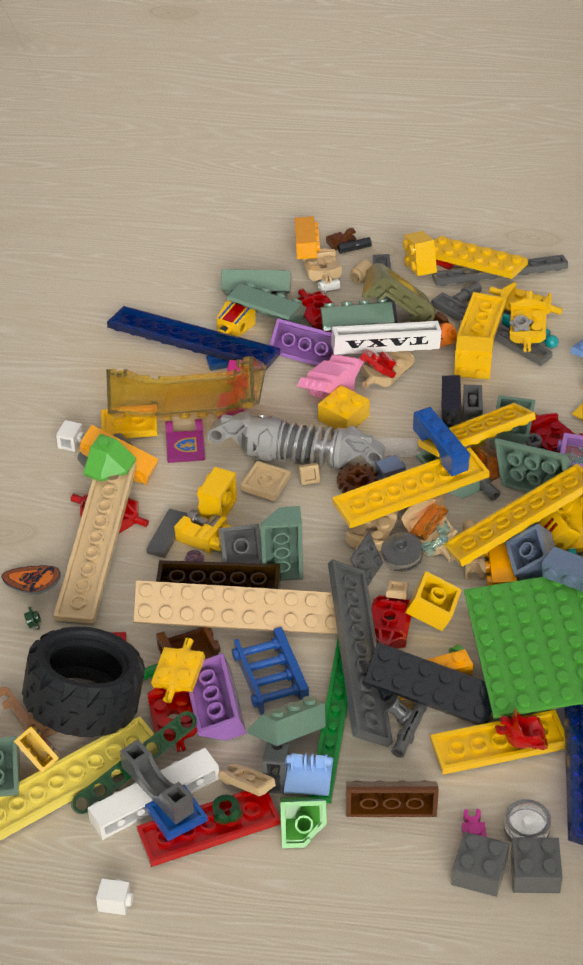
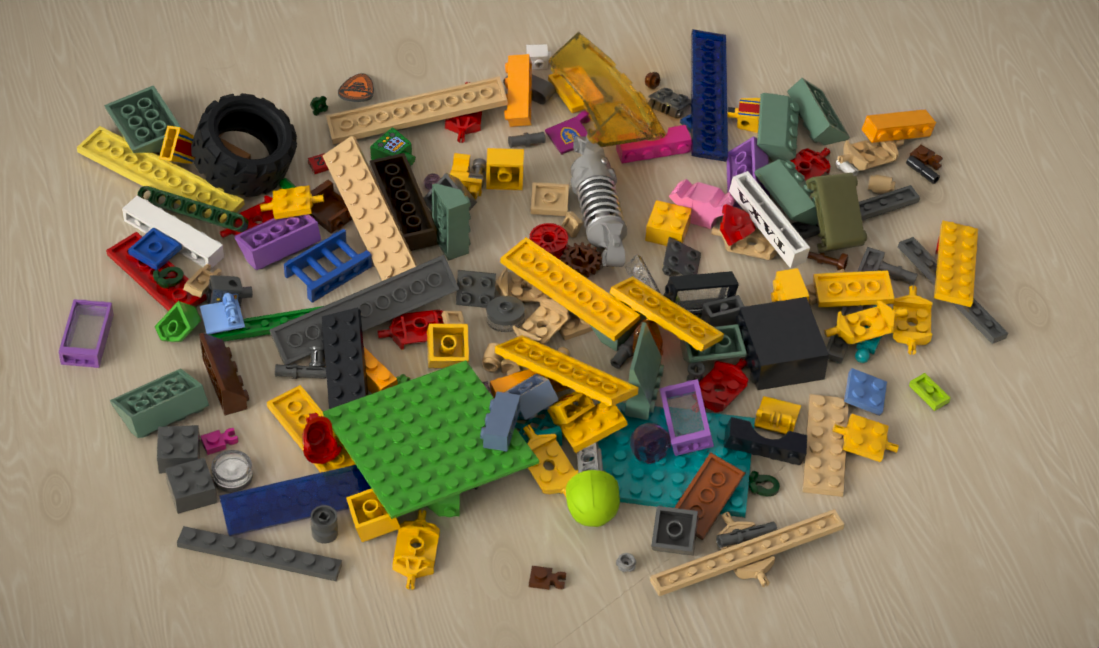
camera: 65 degrees right, 5 degrees up
(108, 458) = (495, 79): bright green slope -> none
(114, 896) = (69, 240): white brick -> none
(131, 569) = (392, 144): none -> green torso
(151, 368) = (652, 80): none -> reddish brown plate
(165, 534) = (445, 156): dark grey tile -> none
(170, 797) = (178, 208): dark grey arch -> none
(176, 475) = (526, 139): none -> dark grey pin
(186, 365) = (669, 101): none -> dark grey hinge
(269, 912) = (86, 333): none -> window
(290, 721) = (264, 286): sand green slope -> none
(319, 495) = (550, 238): none -> red wheel
(386, 417) = (680, 258): none -> dark grey hinge
(389, 467) = (602, 276): sand blue brick -> none
(402, 866) = (160, 402): none -> sand green slope
(419, 253) = (922, 214): yellow brick -> none
(429, 521) = (540, 316): clear orange tile -> none
(430, 547) = (537, 328): clear light blue arm -> none
(448, 334) = (813, 262): orange head -> none
(451, 451) = (611, 296): blue arch -> none
(454, 575) = (491, 360): none -> tan brick
(521, 323) = (856, 316): light grey plate -> none
(527, 373) = (782, 343): none -> black brick

